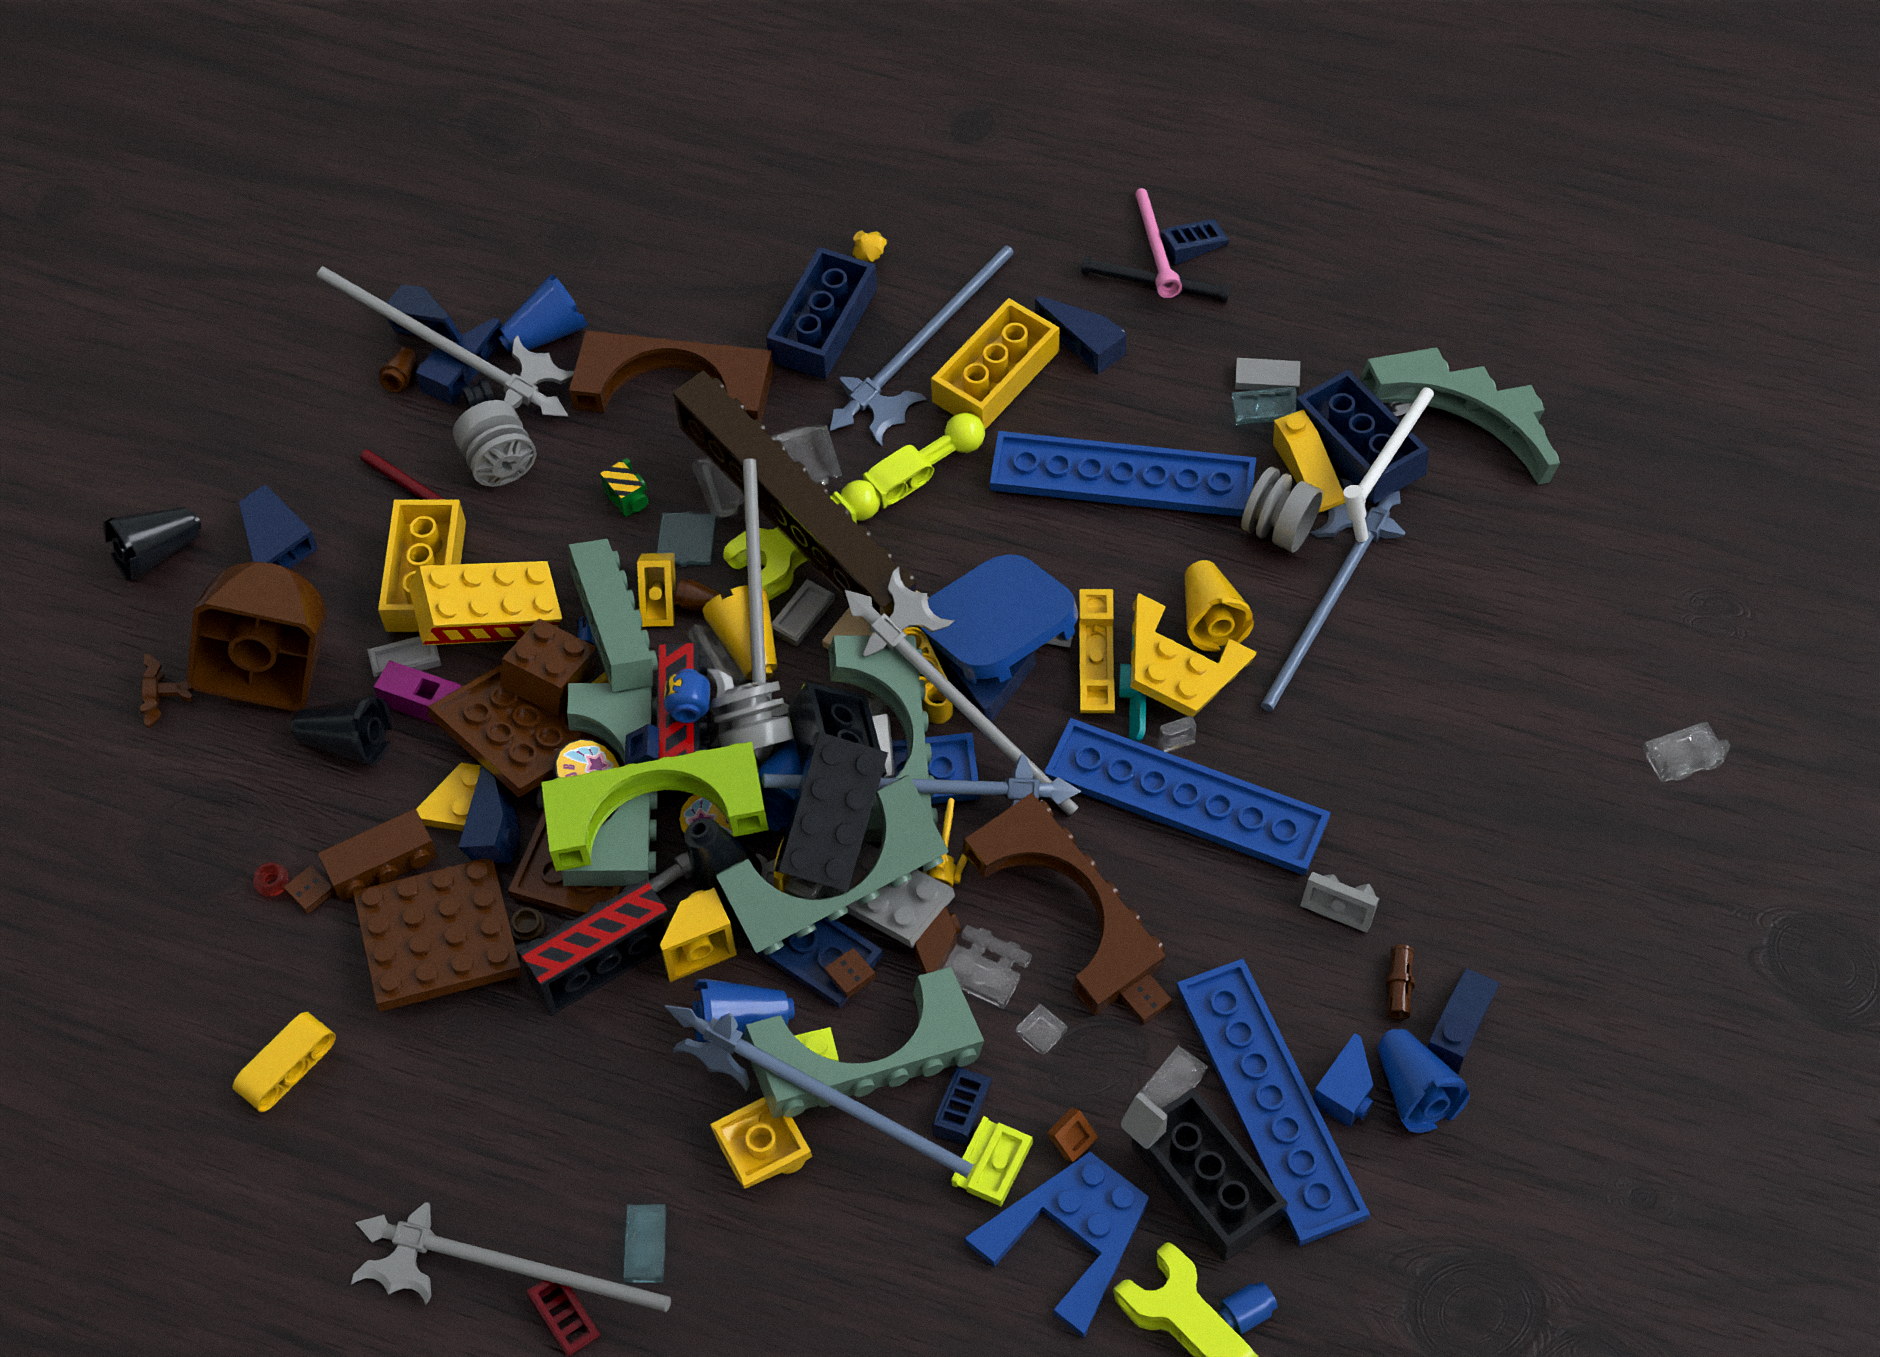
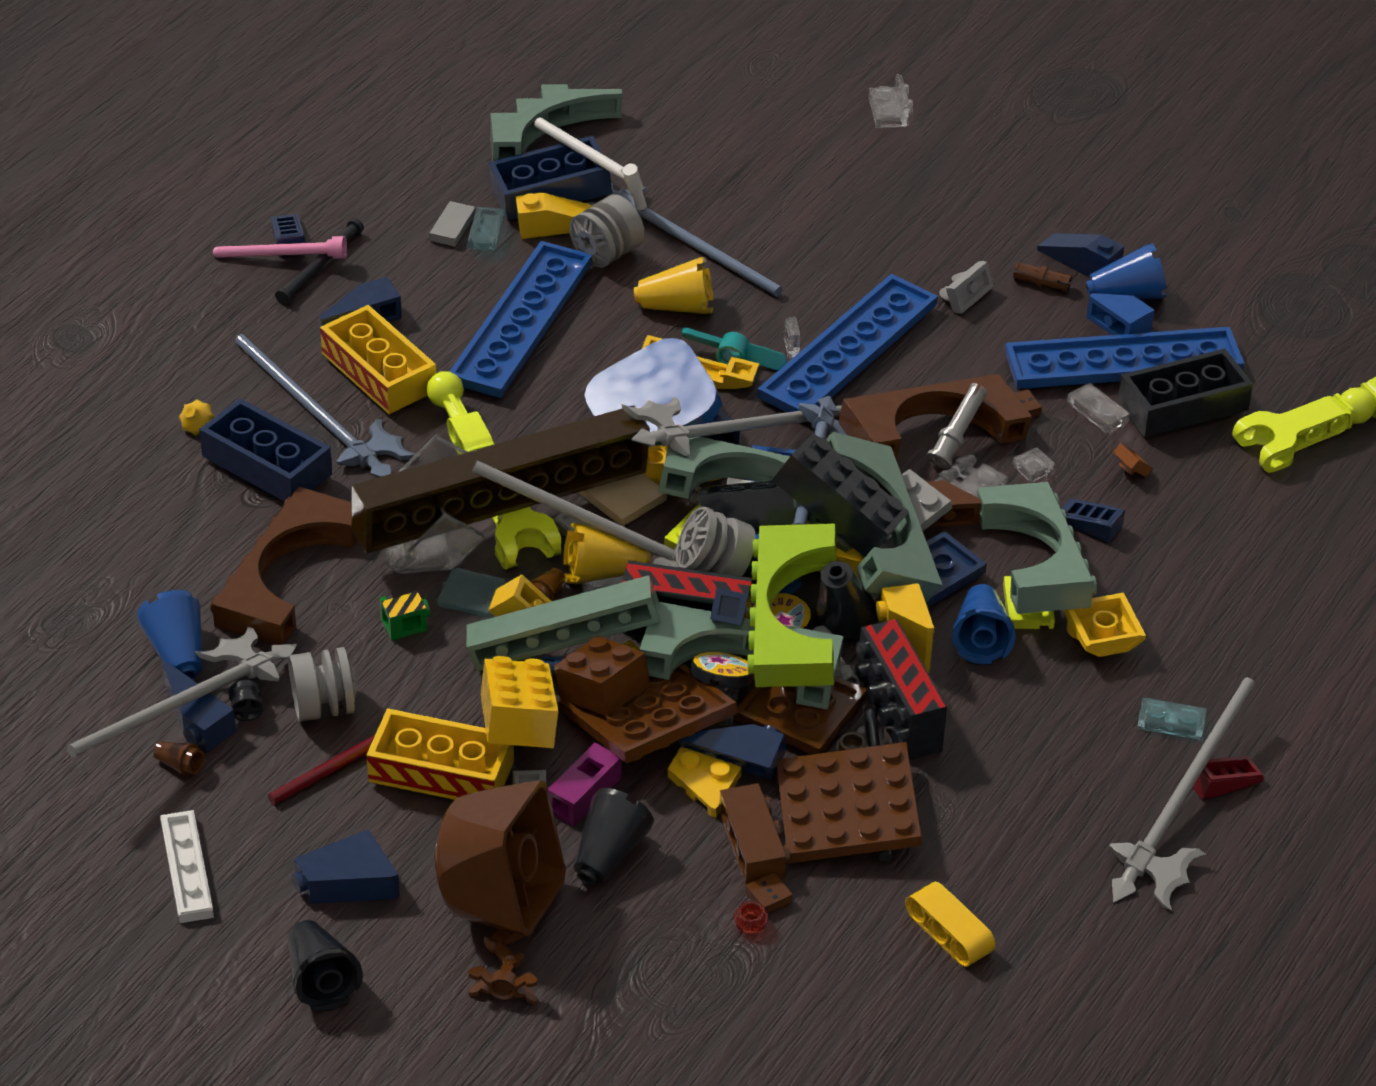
camera: 80 degrees left, 15 degrees down
(271, 416) = (186, 866): none -> white tile
(421, 306) = (127, 705): dark blue slope -> none
(687, 695) = (694, 561): blue head -> none
(725, 1039) = (1037, 586): sand blue piece -> none
(850, 973) = (964, 547): reddish brown tile -> none
(996, 1157) = (1146, 508): neon yellow plate -> none
(1042, 927) = (952, 436): none -> light grey pin
(1089, 1204) = (1195, 464): blue wing -> none
(1144, 1121) = (1149, 395): light grey slope -> none
(1173, 671) = (738, 318): yellow wing -> none
(1248, 1307) = (1287, 396): blue brick -> none

